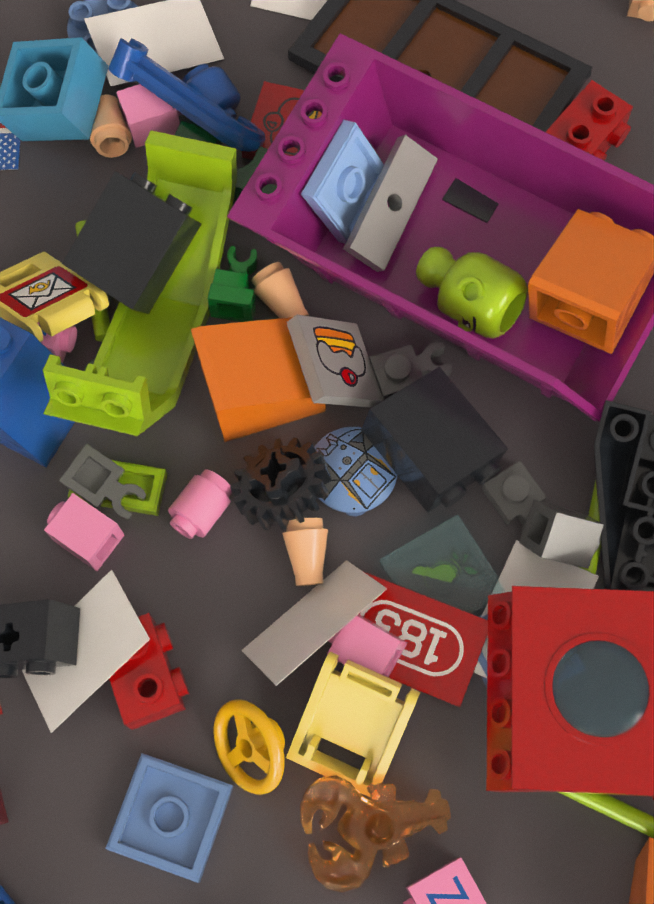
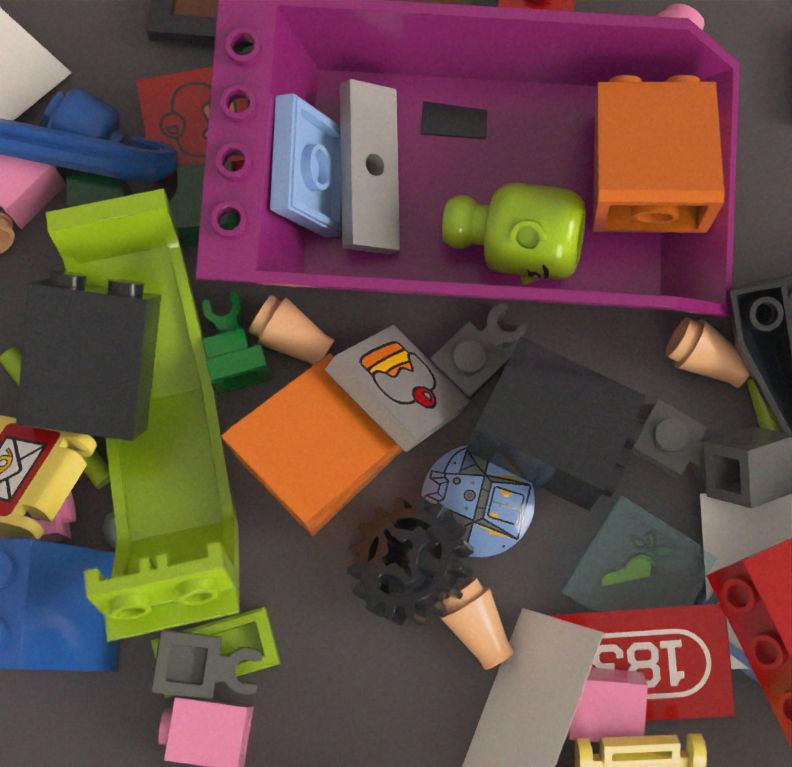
camera: 30 degrees left, 5 degrees up
(200, 504) = (327, 630): bright pink brick -> none
(573, 444) = (706, 352): none -> light nougat cone

